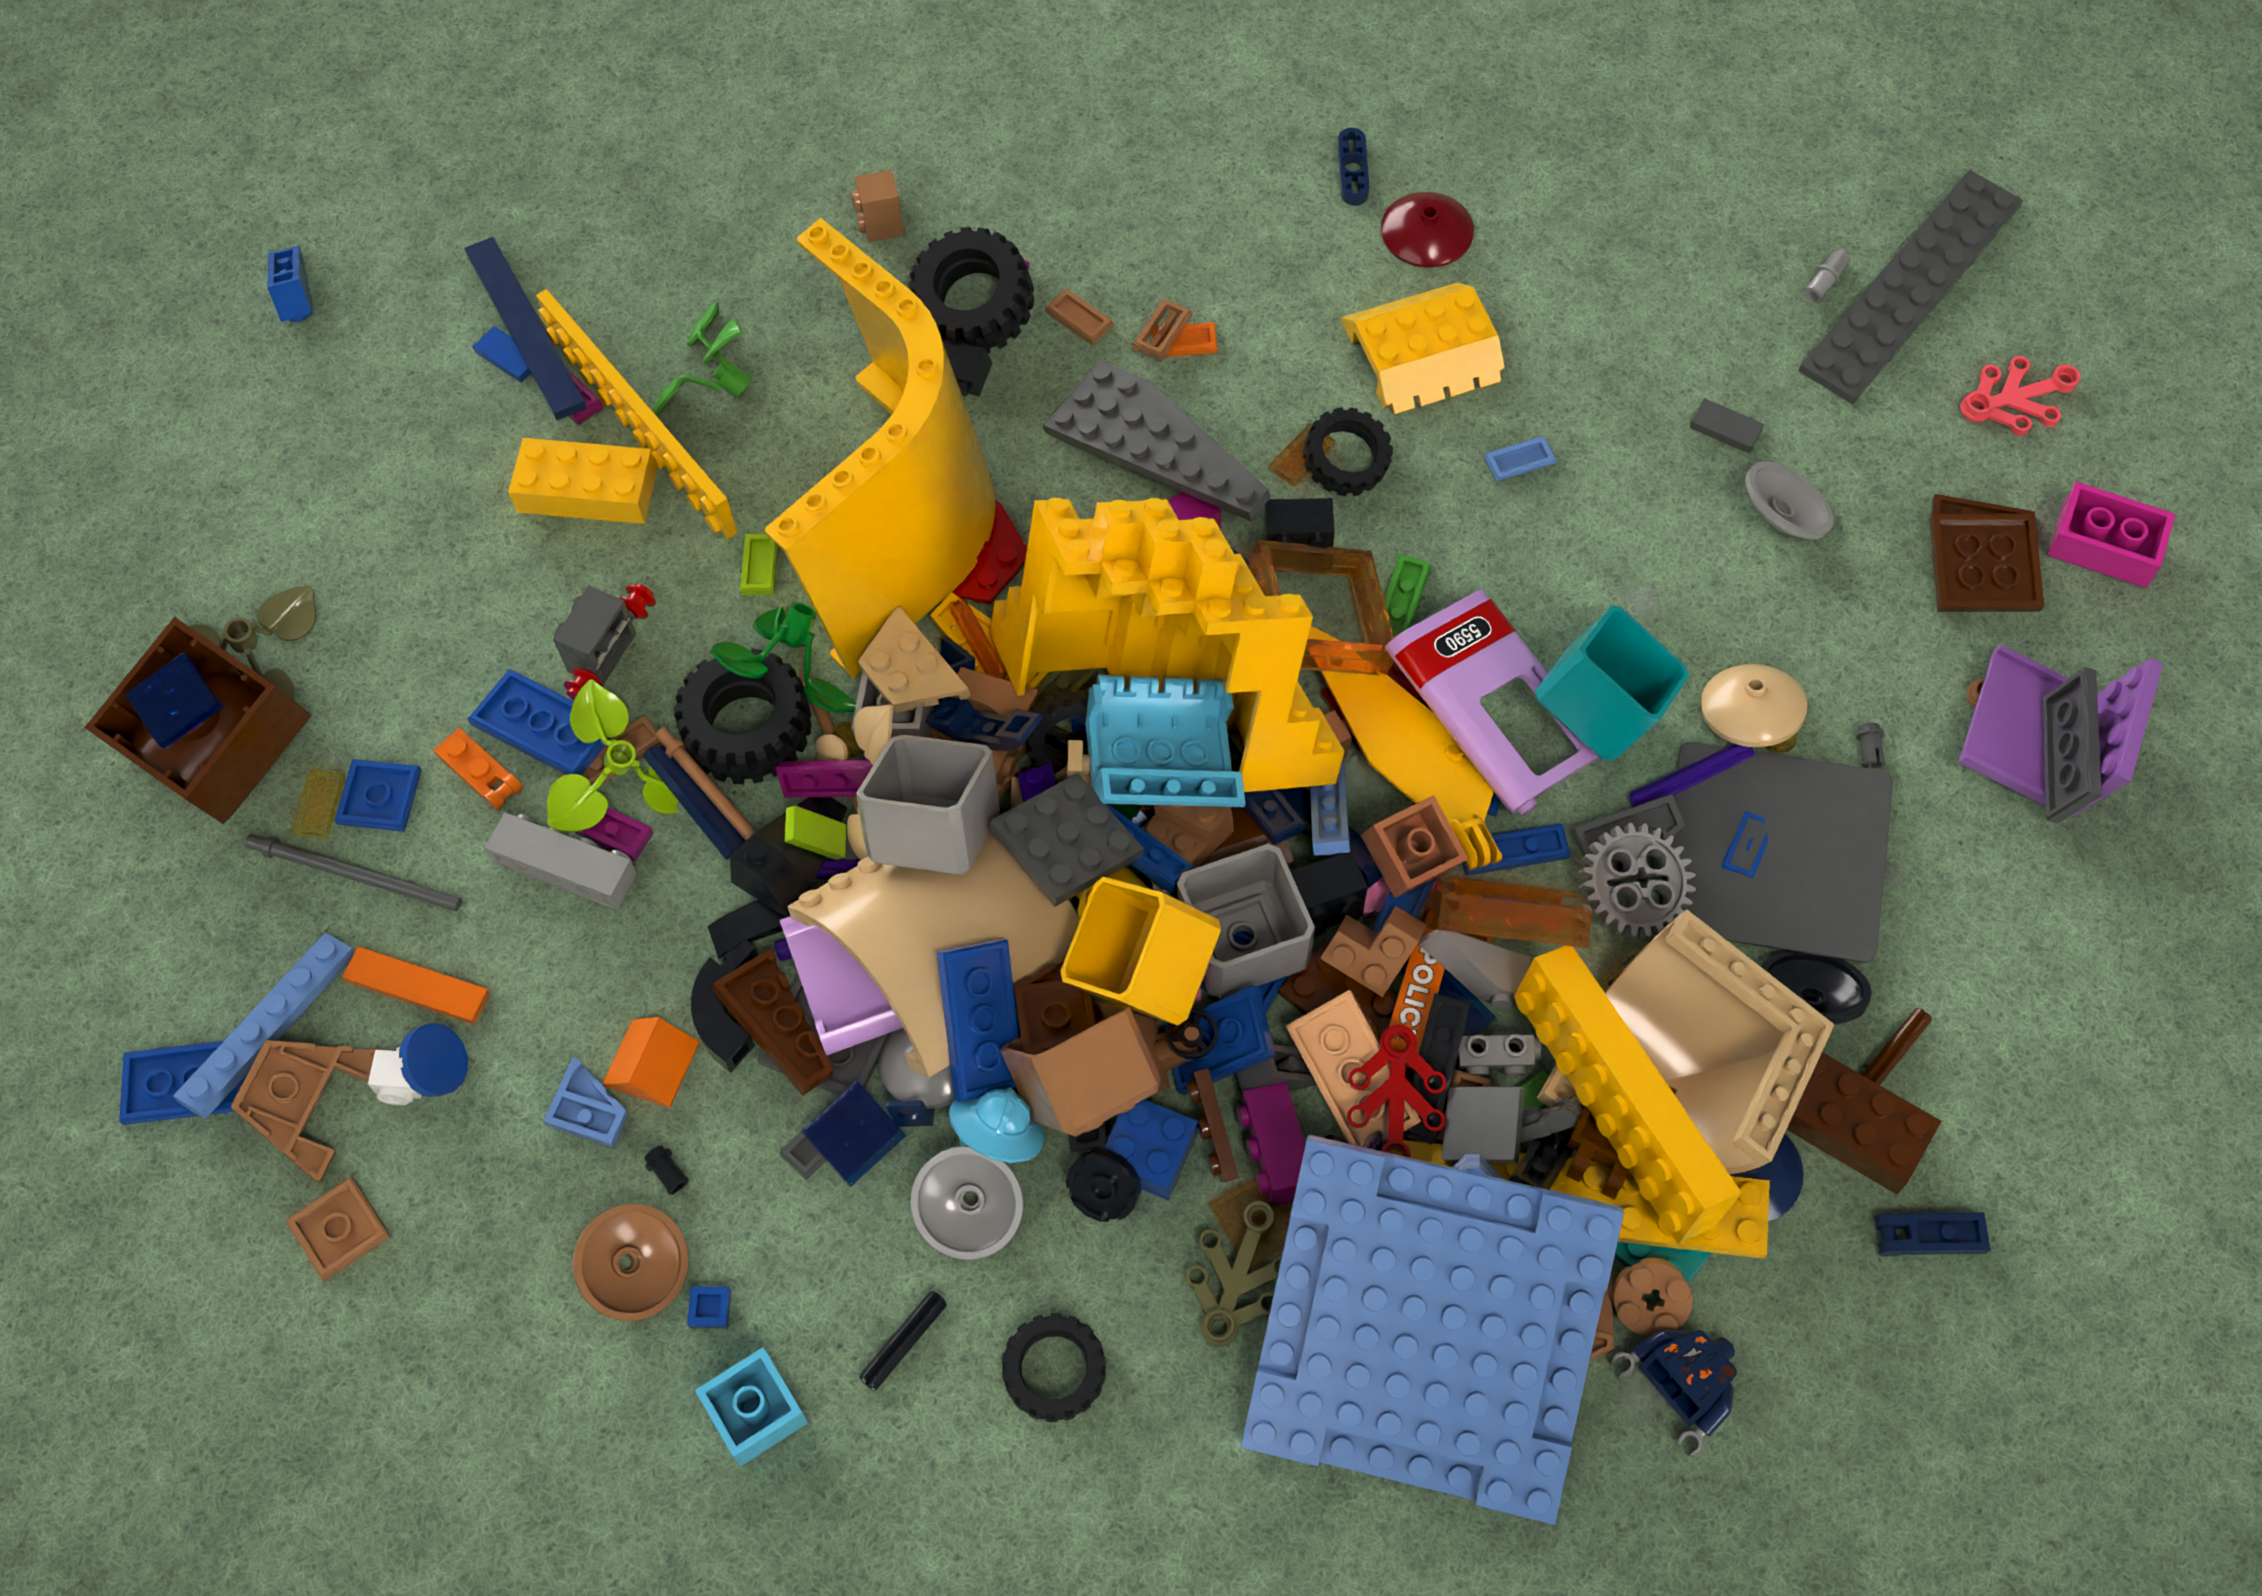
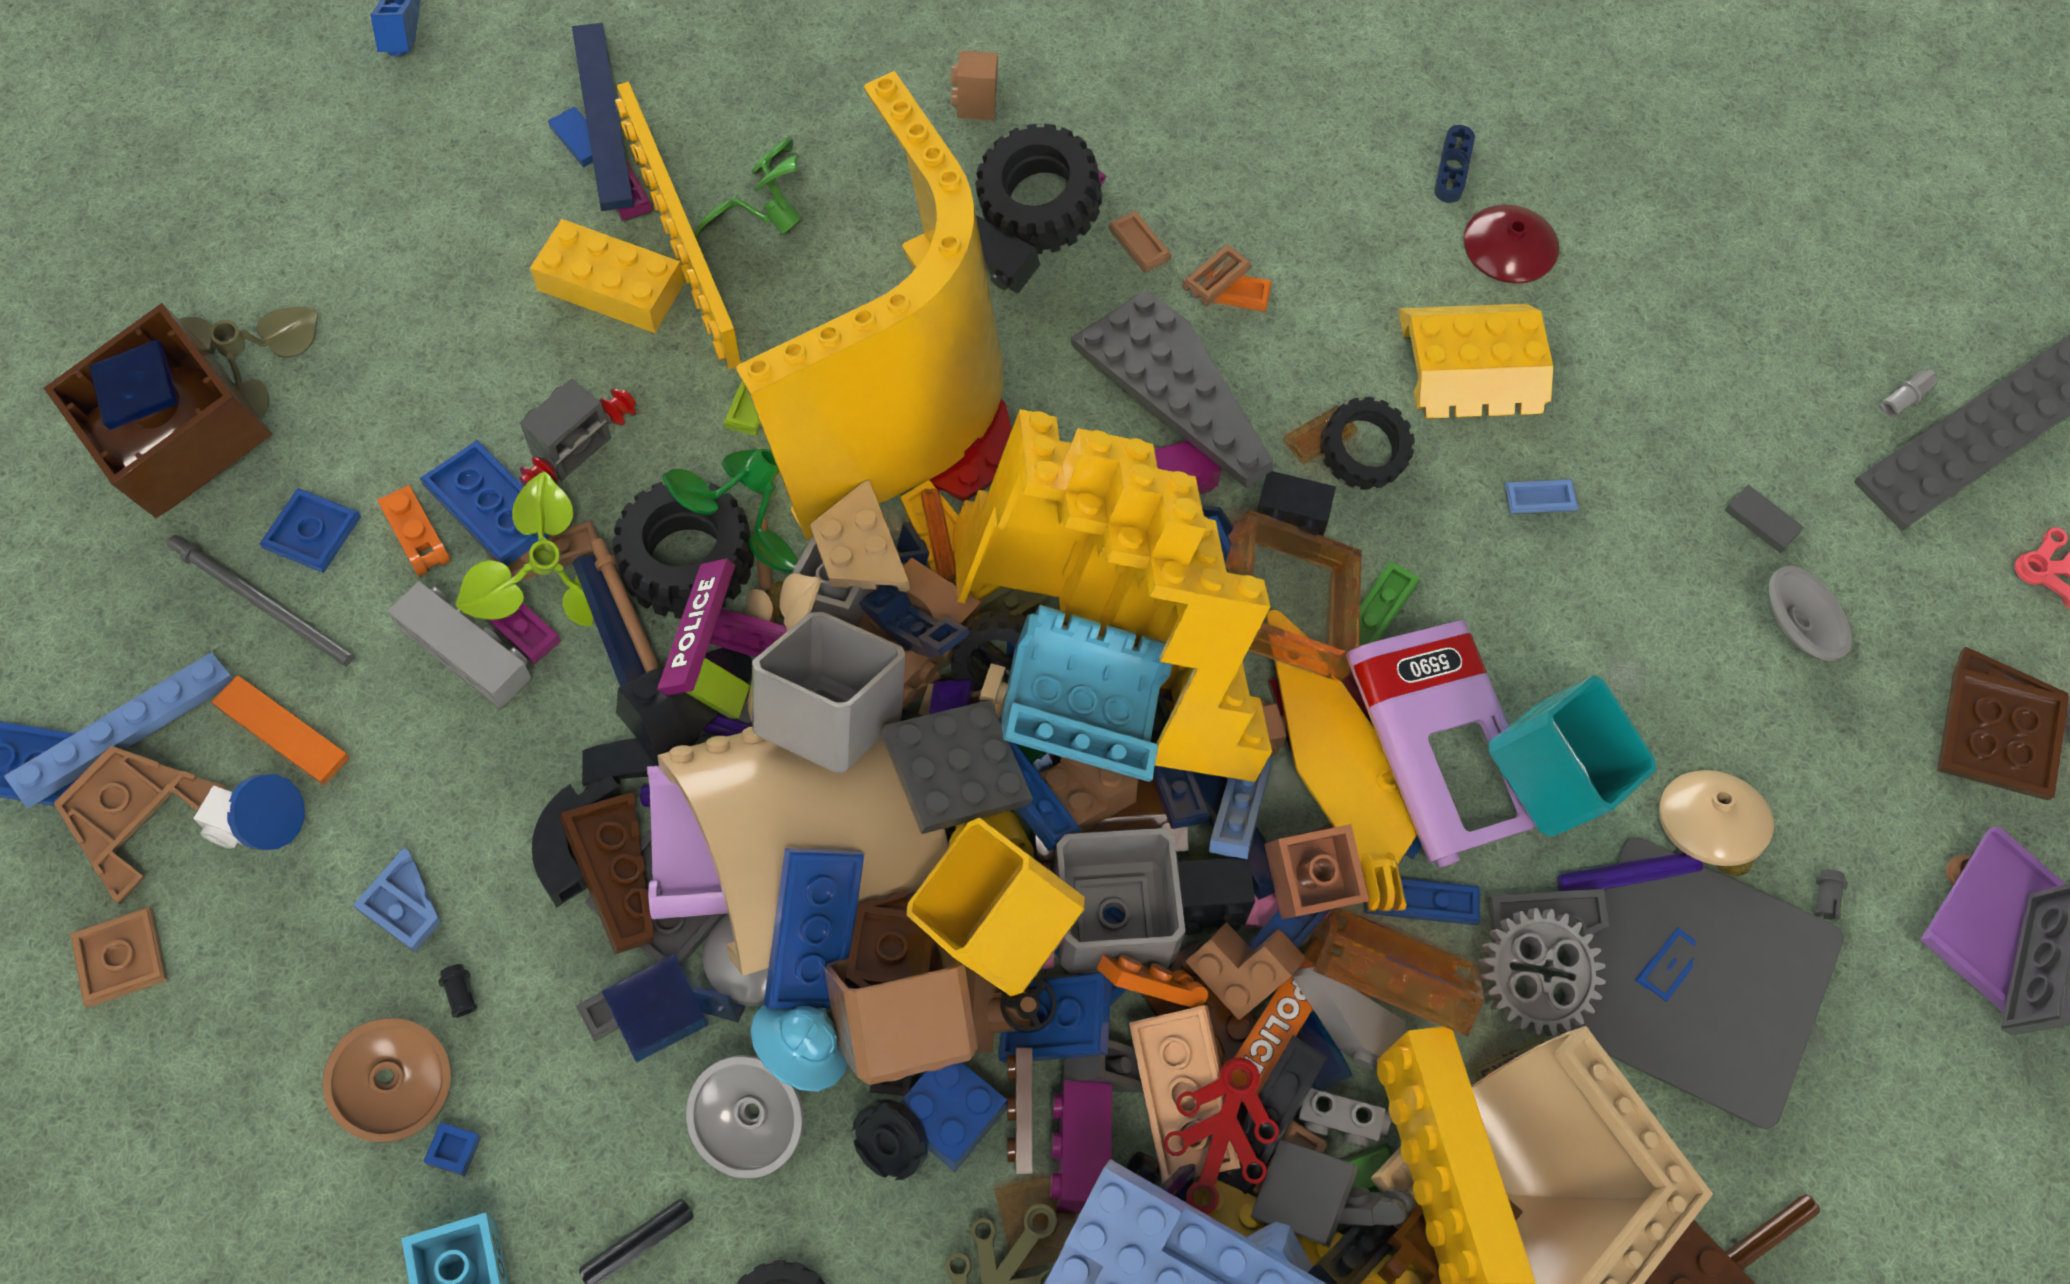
camera: 10 degrees right, 0 degrees up
(318, 804) = (250, 523): clear yellow tile -> none
(651, 1061) = (481, 874): orange slope -> none
(785, 781) = (696, 627): none -> magenta tile
(1298, 981) = (1153, 981): none -> orange plate
(1824, 983) = (1711, 1140): black dish -> none

